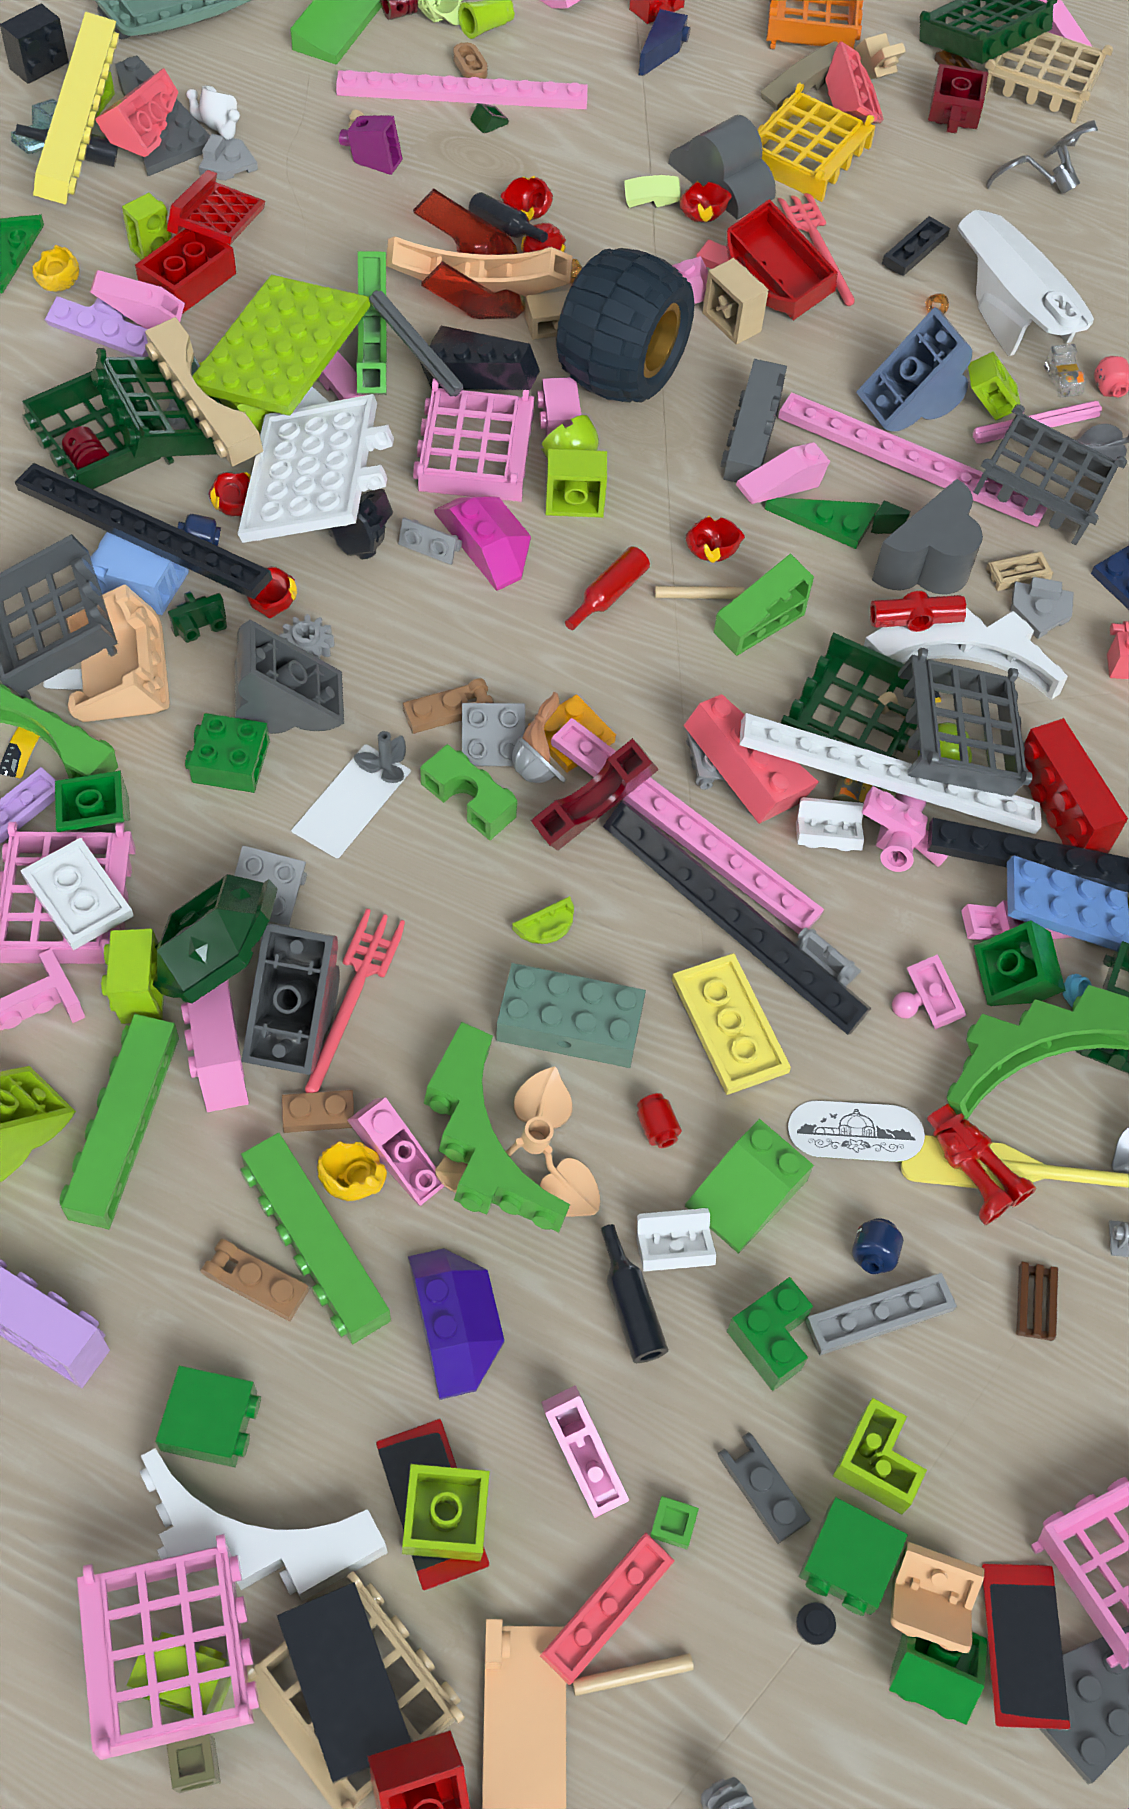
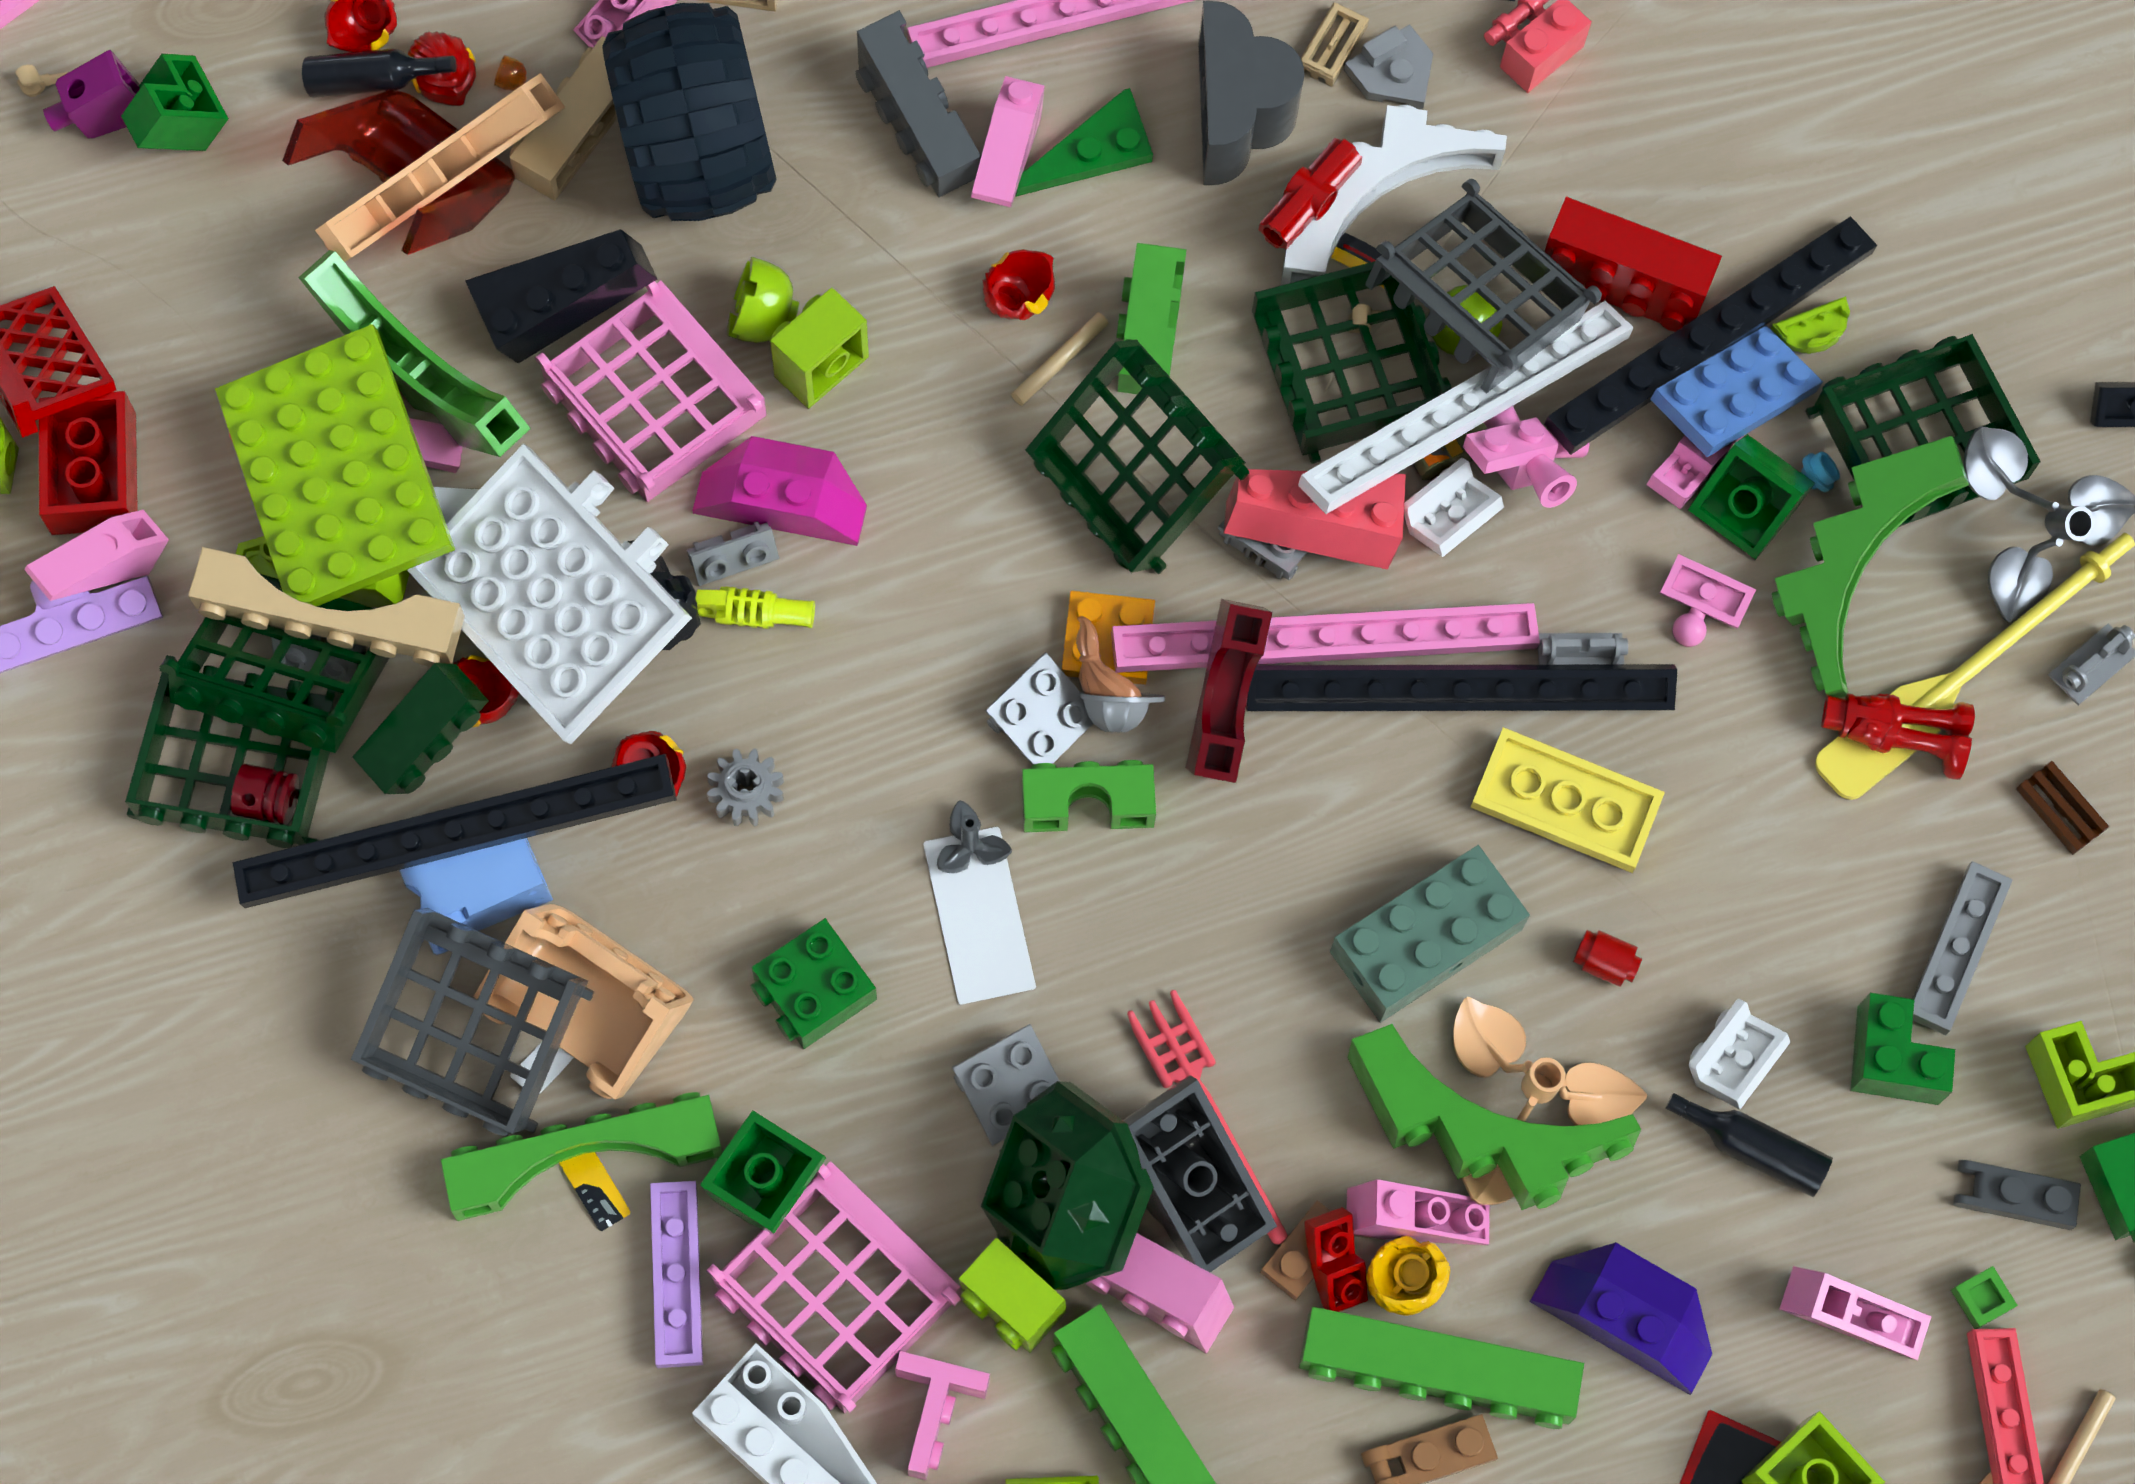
camera: 45 degrees left, 10 degrees up
(77, 893) = (866, 1274): white plate -> none
(186, 481) = (421, 729): none -> dark green brick
(197, 613) = (598, 884): dark green hips -> none
(201, 527) = (493, 772): dark blue head -> none
(284, 684) = (797, 862): dark grey brick -> none
(322, 1124) = (1332, 1256): none -> red slope
(398, 168) = (175, 107): none -> green brick
(409, 571) = (753, 608): none -> neon yellow hinge
(416, 343) = (478, 333): dark grey axle -> none
(443, 707) = (959, 725): medium nougat plate -> none
(546, 924) = (1307, 861): lime plate -> none
(559, 403) = (693, 266): bright pink brick -> none
(611, 585) = (972, 434): red piece -> none
(639, 700) = (1094, 506): none -> dark green window
(751, 1185) = (1743, 939): bright green slope -> none
(856, 1131) = (1770, 796): white sticker -> none
(877, 1246) = (1899, 889): dark blue head -> none
(889, 518) = (1157, 97): dark green slope -> none

